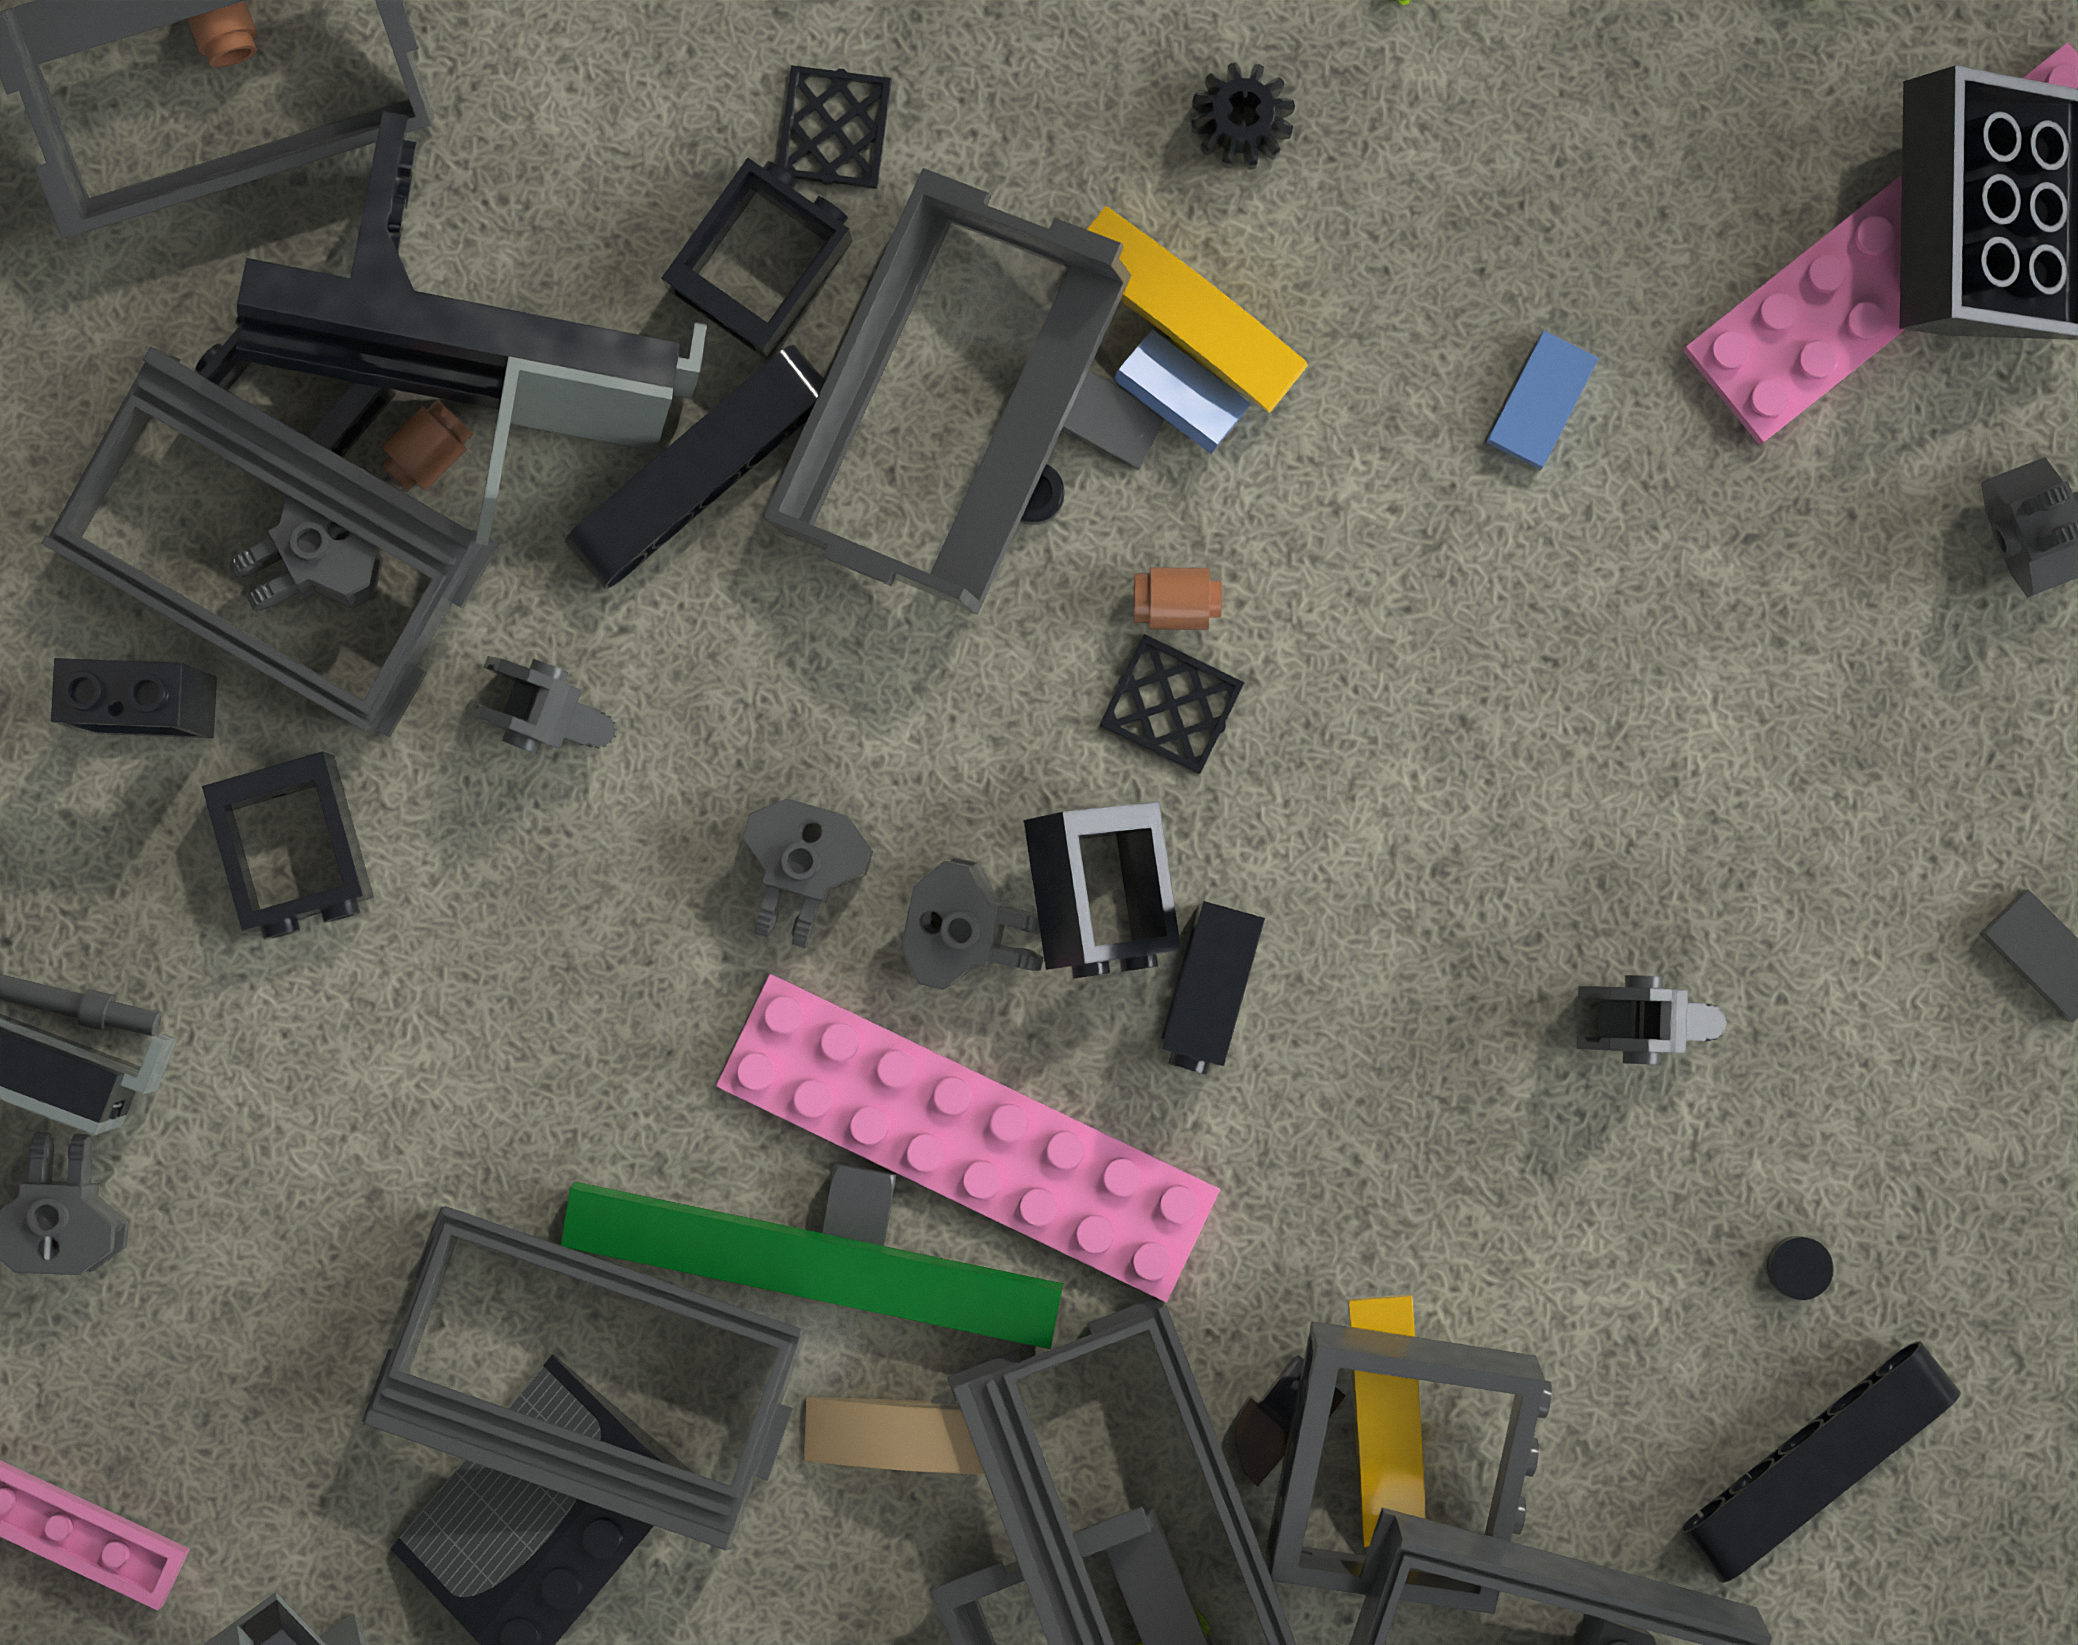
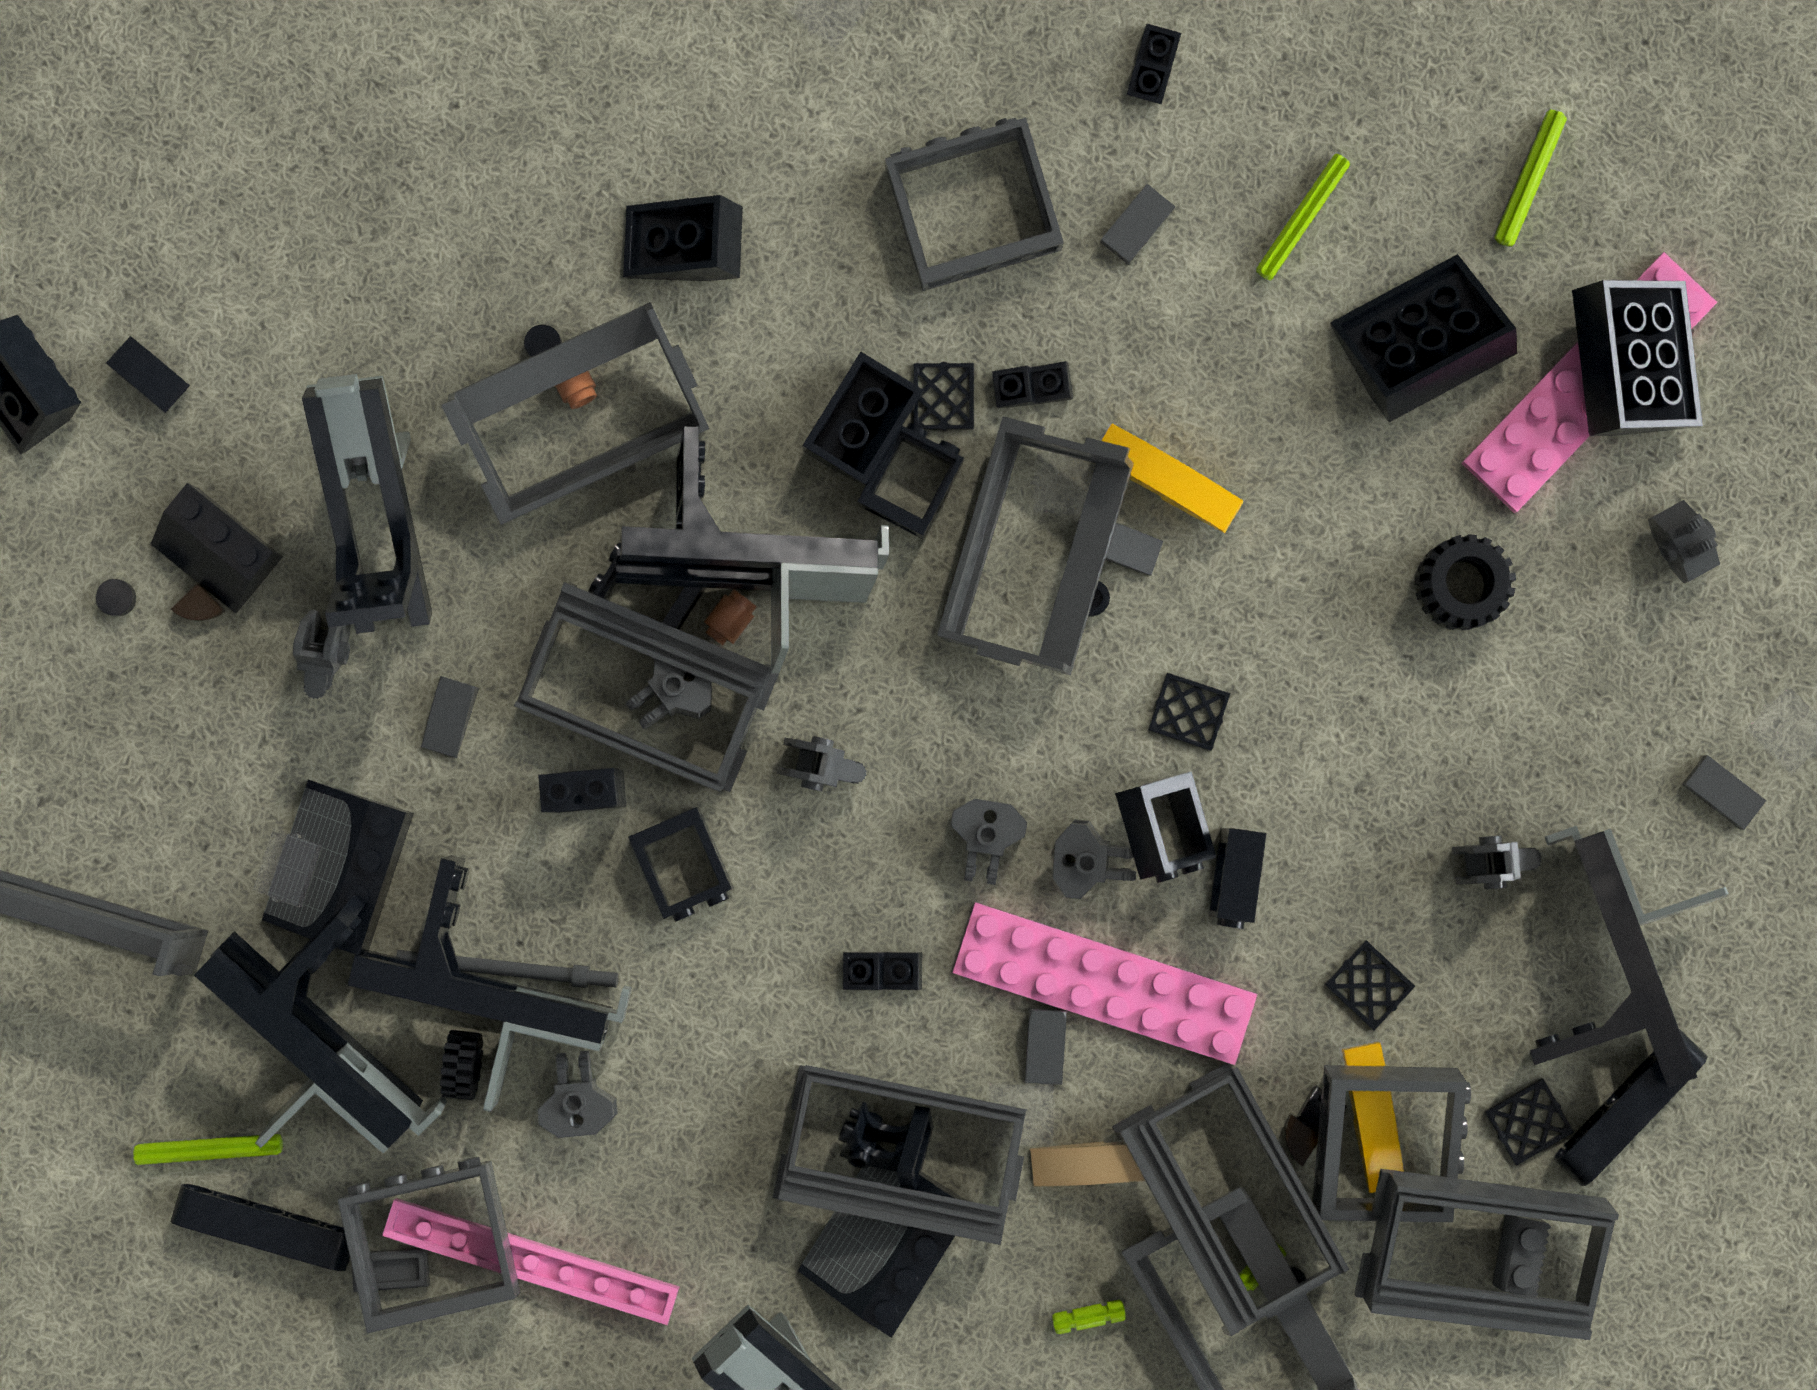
camera: 10 degrees left, 0 degrees up
(600, 1067) = (882, 970): none -> black slope
(609, 1355) = (911, 1139): none -> black tile
(686, 141) = (862, 419): none -> black slope
(697, 467) = (892, 609): black beam -> none
(811, 1265) = (1024, 1070): green tile -> none
(984, 128) = (1032, 385): none -> black slope
(1176, 598) = (1184, 649): nougat brick -> none
(1181, 391) = (1170, 527): medium blue tile -> none
(1250, 92) = (1171, 357): black gear -> none
(1443, 1237) = (1390, 1005): none -> black window
(1542, 400) = (1383, 503): medium blue tile -> none
(1650, 132) = (1425, 337): none -> black slope
(1692, 1444) = (1542, 1144): none -> black window
(1700, 514) = (1495, 576): none -> black tyre
(1800, 1267) = (1603, 995): black tile -> none
(1869, 1287) = (1647, 1003): none -> black piece

